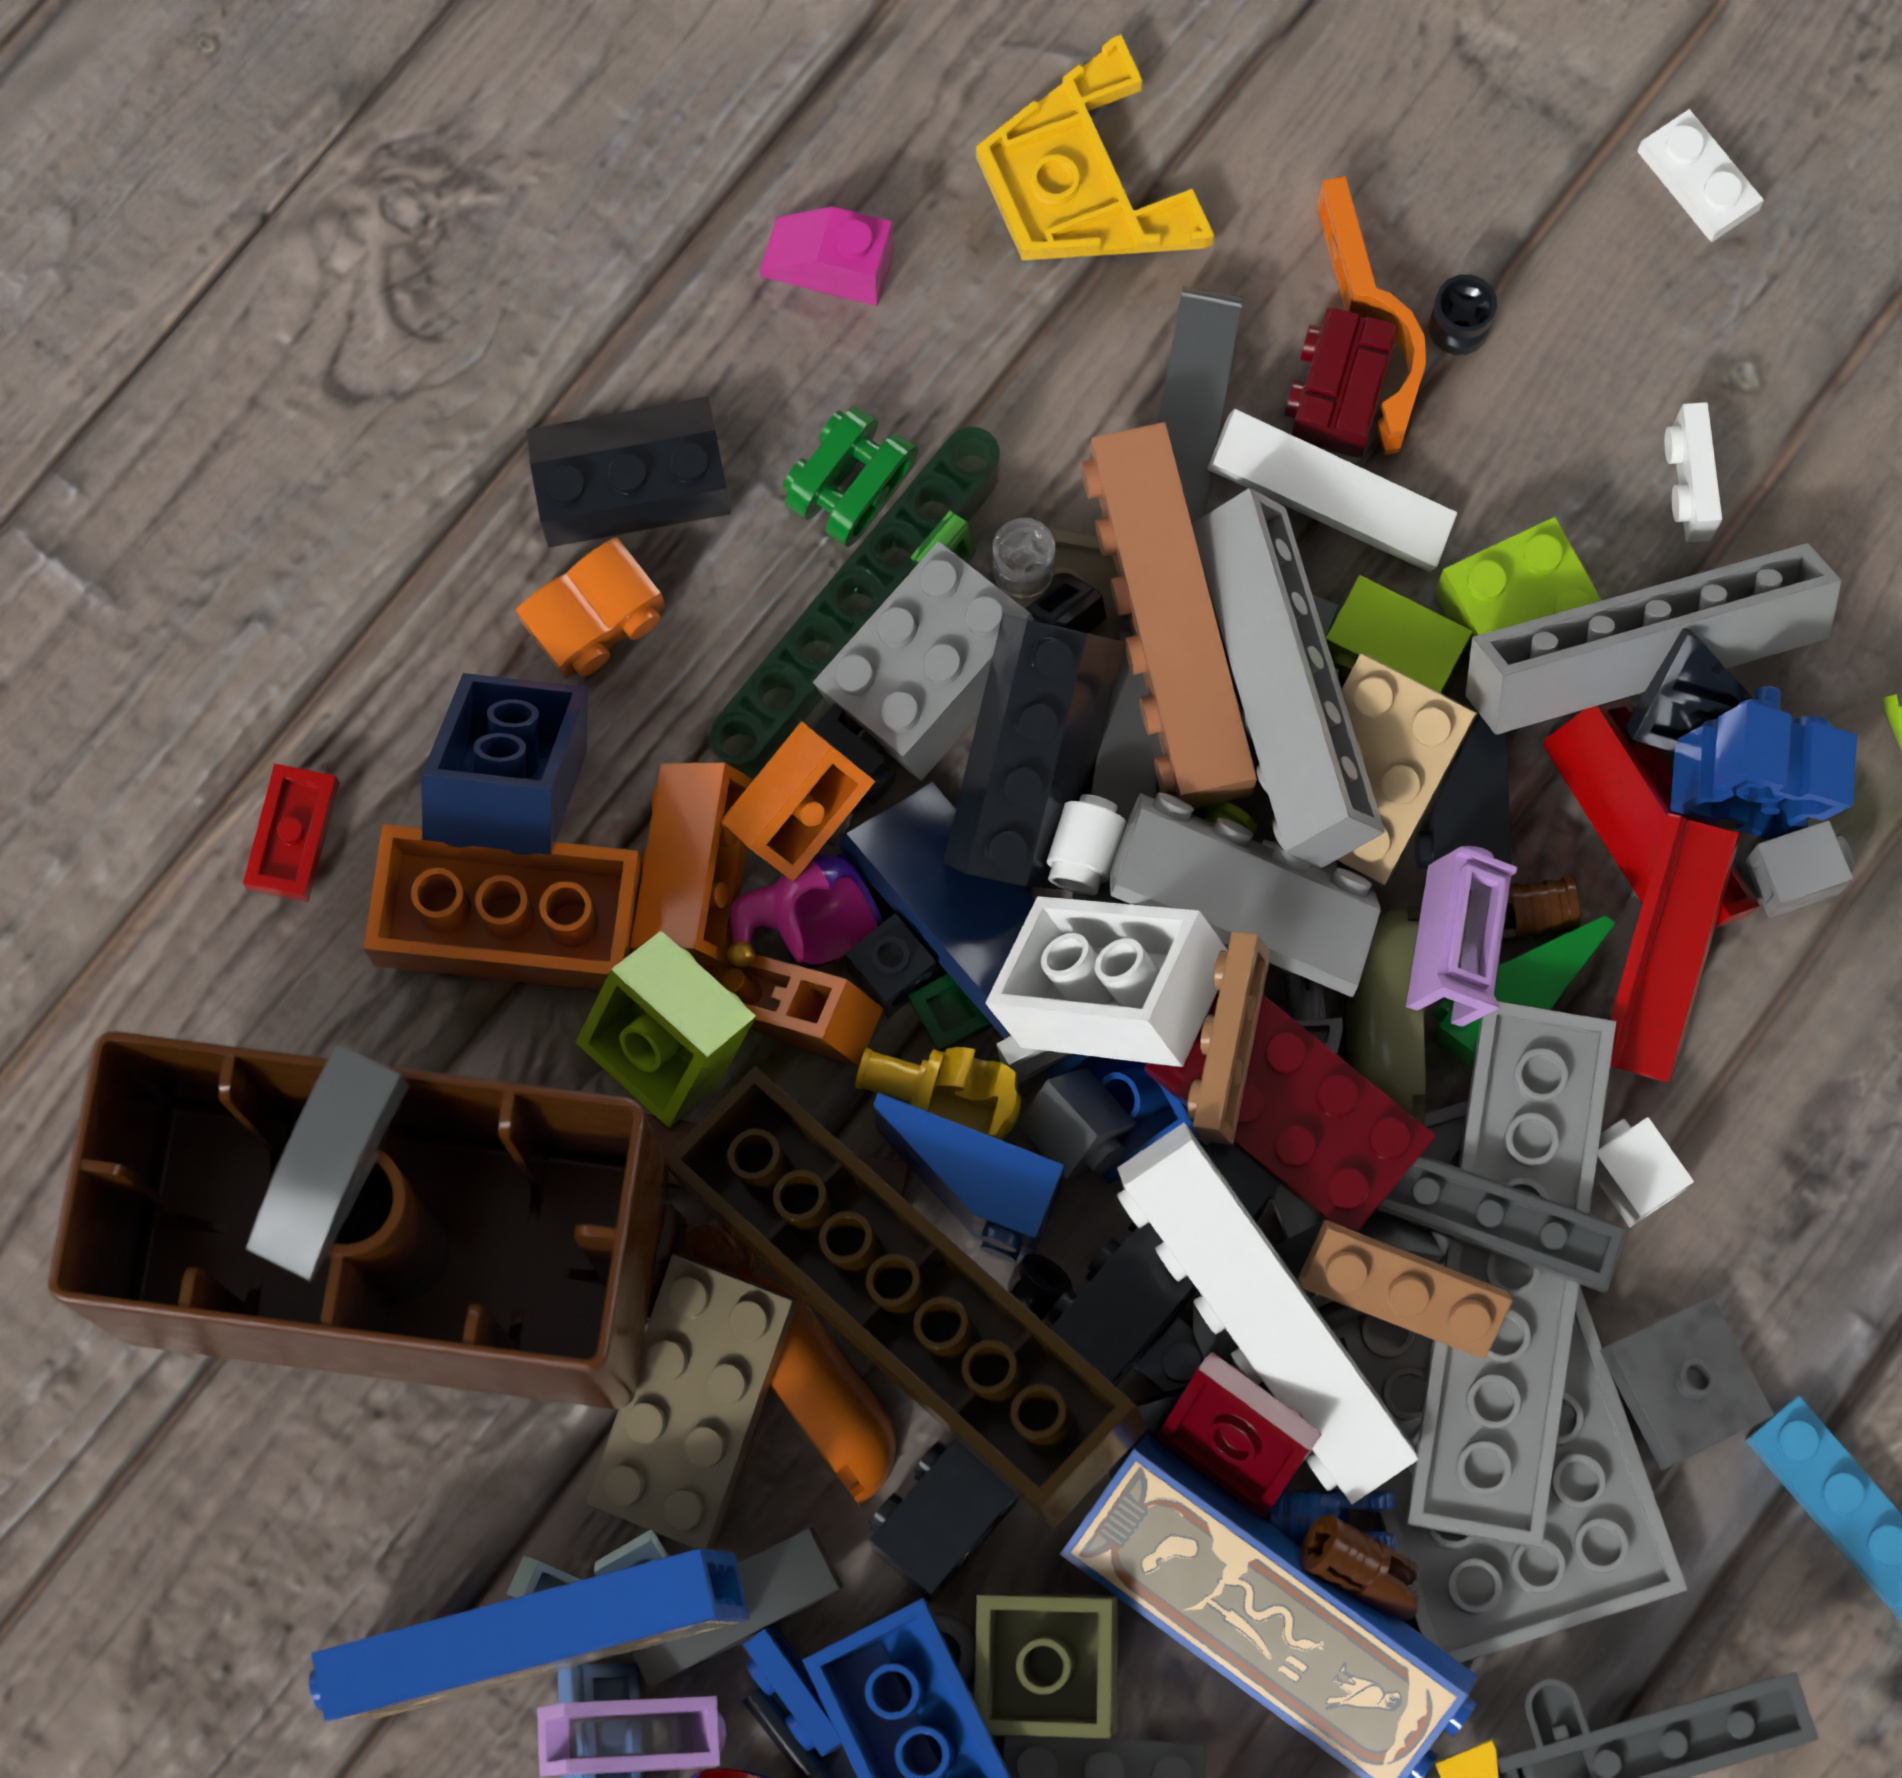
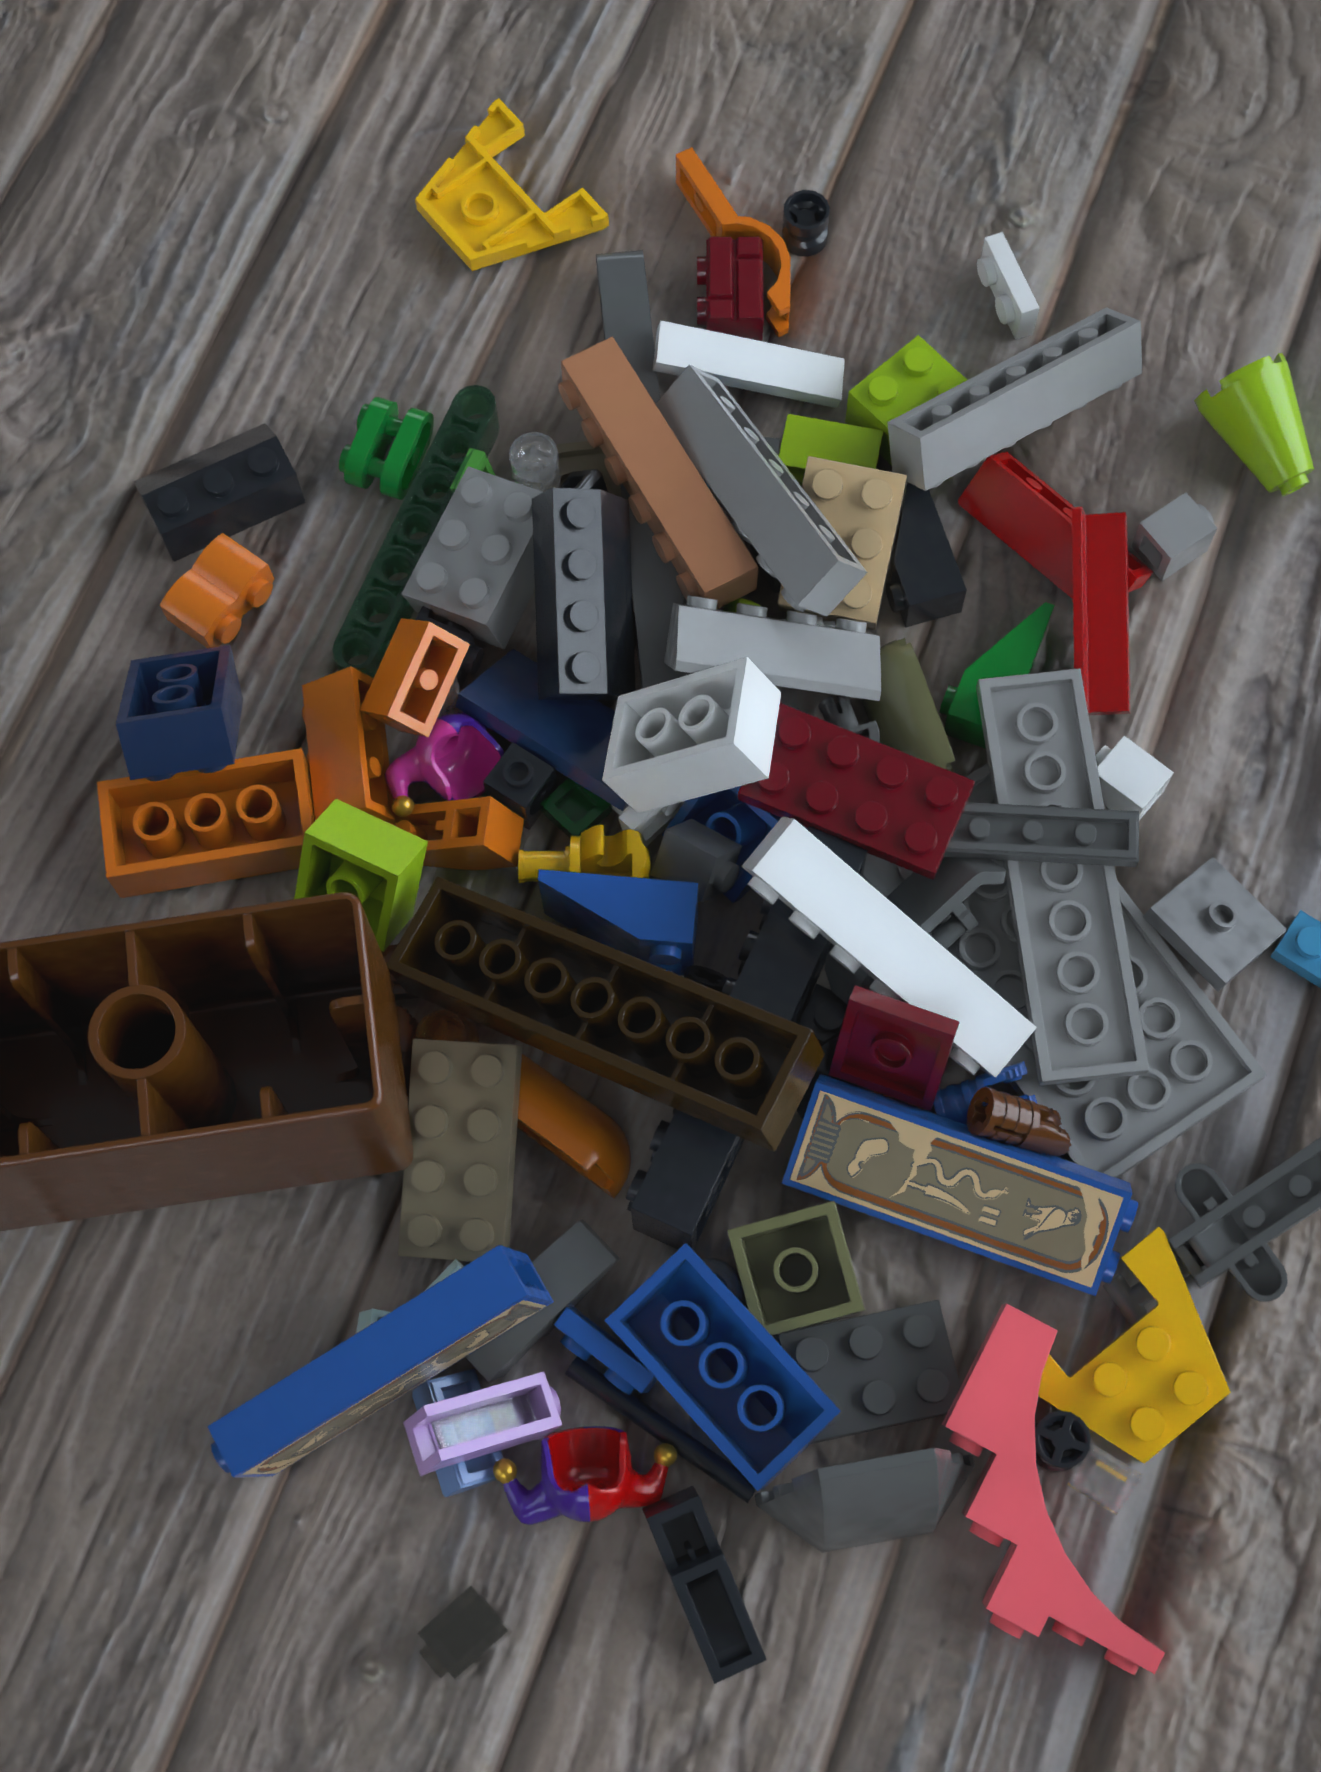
camera: 15 degrees left, 5 degrees down
(291, 832) = (28, 816): red plate -> none
(326, 1161) = (111, 1002): dark grey slope -> none
(831, 253) = (329, 298): dark pink slope -> none
(1085, 844) = (642, 651): white brick -> none
(1229, 1037) = (797, 746): medium nougat plate -> none
(1405, 1289) = (987, 902): medium nougat plate -> none
(1461, 933) = (944, 638): lavender window -> none
(1541, 909) = (986, 618): reddish brown hinge -> none
(1684, 694) = (1065, 439): black wing -> none
(1700, 175) = (945, 92): white plate -> none
(1764, 768) = (1129, 465): blue brick -> none

